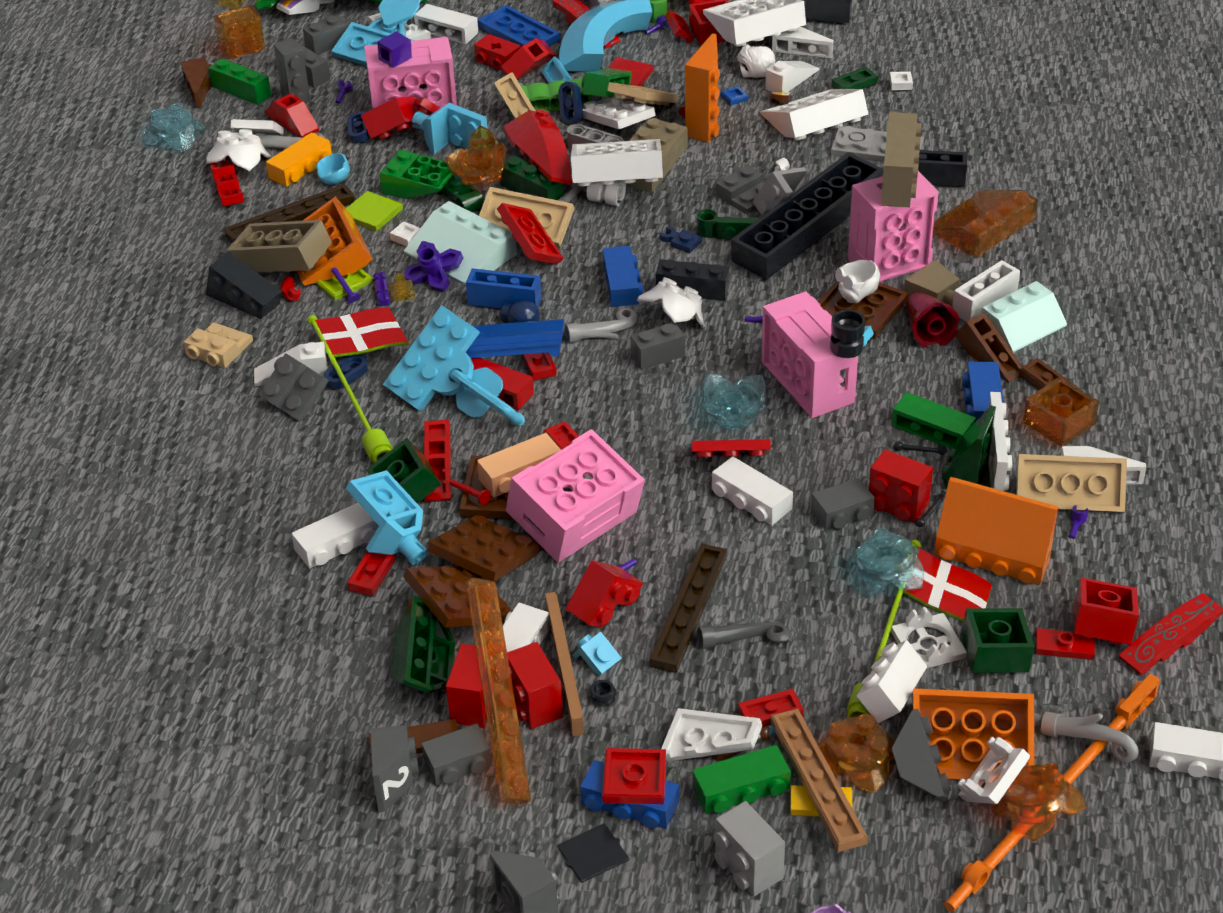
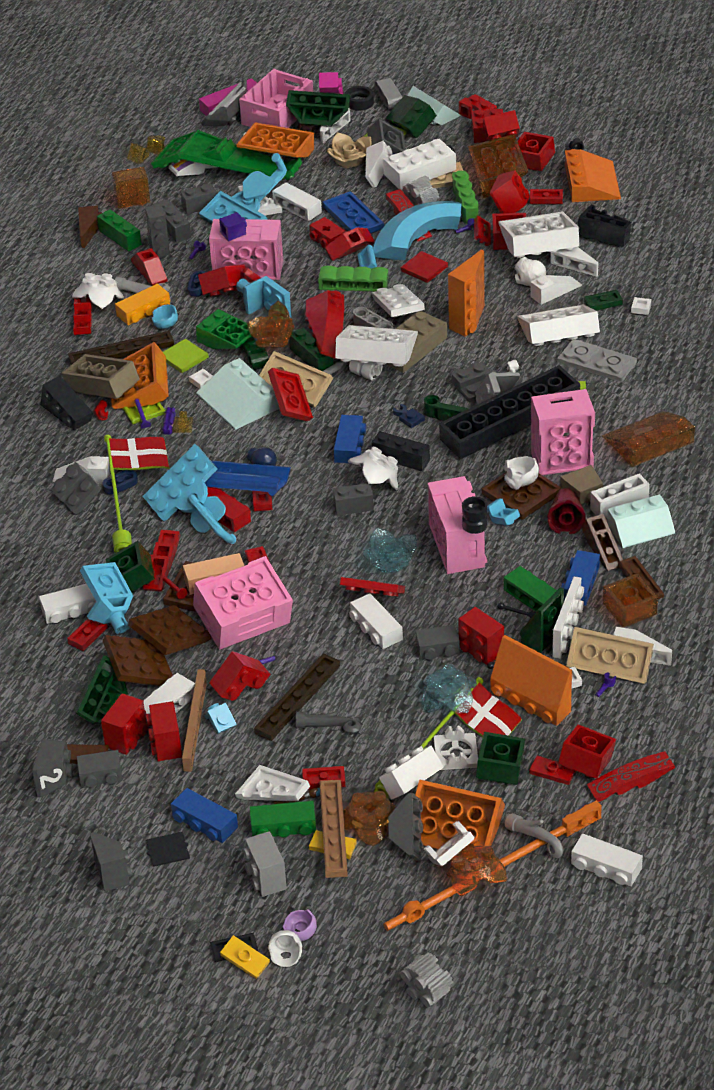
camera: 15 degrees right, 0 degrees up
(174, 126) = (57, 263): clear light blue brick -> none
(216, 344) = (35, 445): tan plate -> none
(264, 126) = (119, 272): white tile -> none
(433, 266) = (211, 408): dark purple plant -> none
(496, 288) = (251, 434): blue brick -> none
(498, 692) = (135, 729): clear orange plate -> none
(513, 95) = (321, 275): tan plate -> none
(570, 103) = (365, 287): dark blue plate -> none
(597, 81) = (400, 274): green brick -> none
(602, 687) = (214, 741): black plate -> none
(605, 329) = (318, 479): light grey plant -> none
(634, 776) = (208, 803): red tile -> none
(642, 94) = (421, 288): tan plate -> none
(734, 95) = (502, 299): blue tile -> none
(782, 97) = (538, 306): reddish brown tile -> none
(901, 159) = (569, 382): dark tan brick -> none
(943, 167) = (627, 386): black brick -> none

